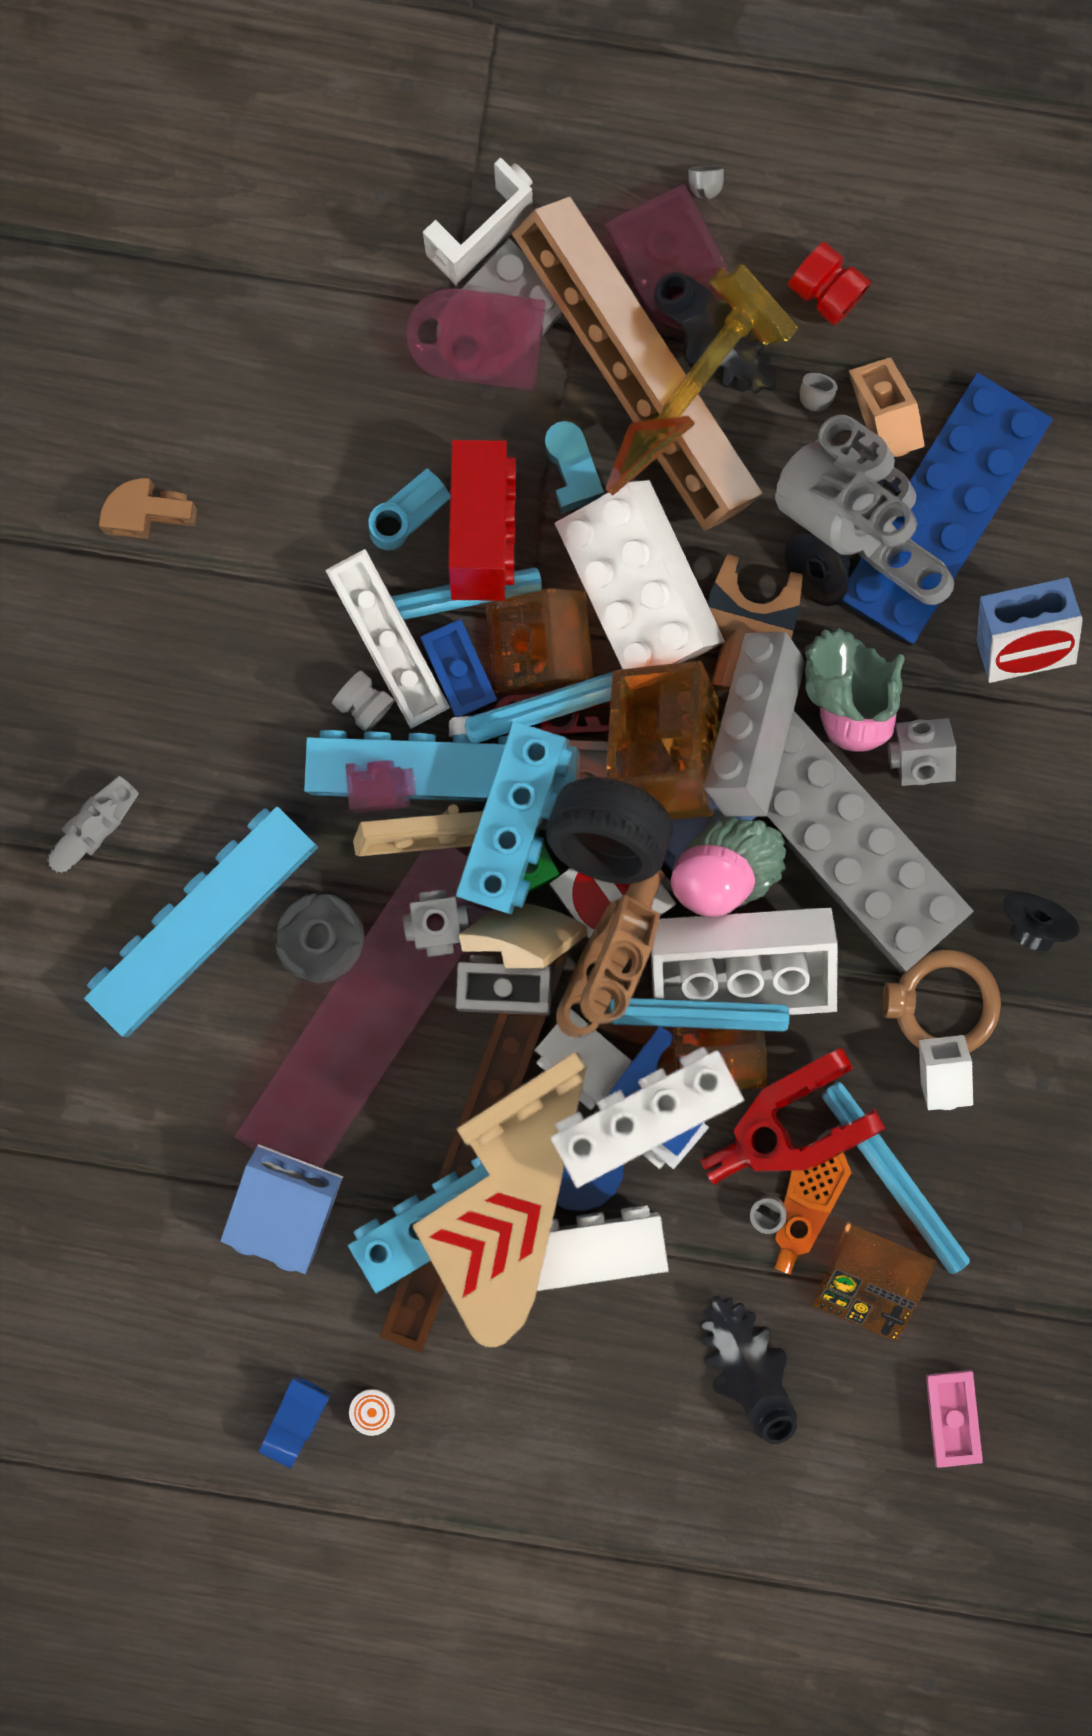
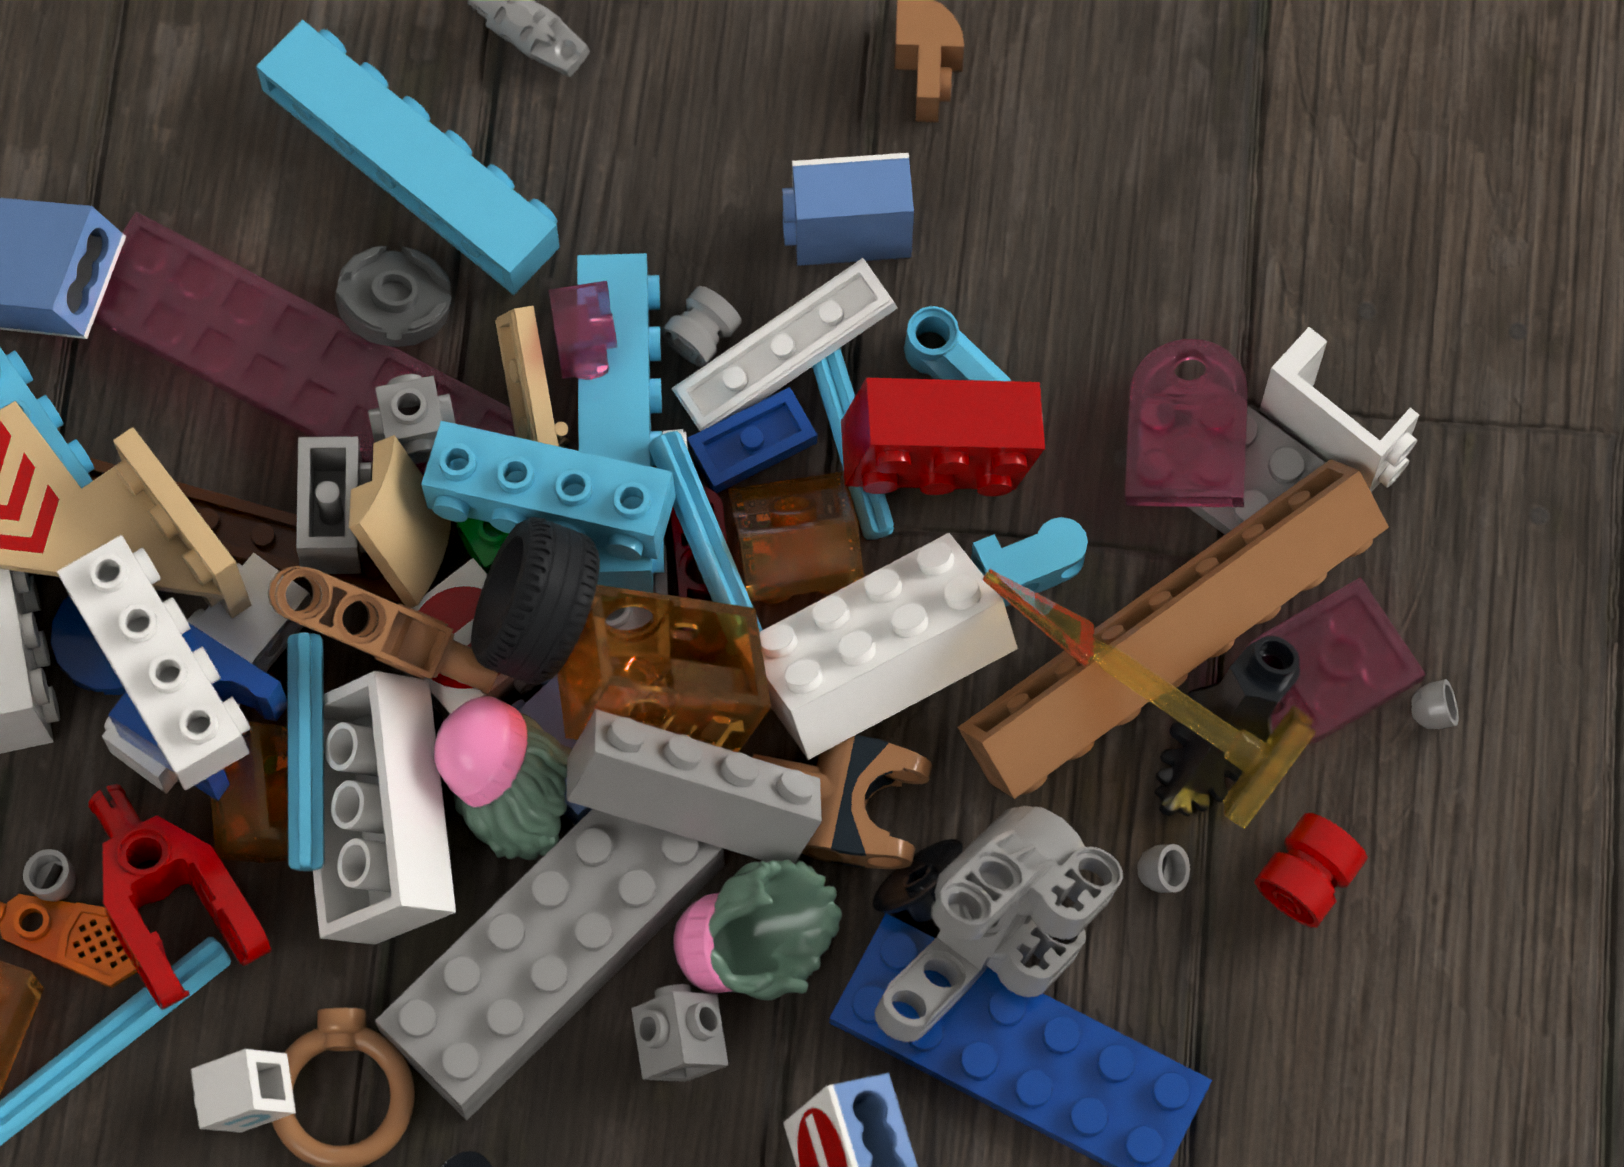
camera: 85 degrees right, 15 degrees down
(281, 577) = (849, 209): none -> medium blue piece
(888, 406) = (1148, 959): light nougat slope -> none

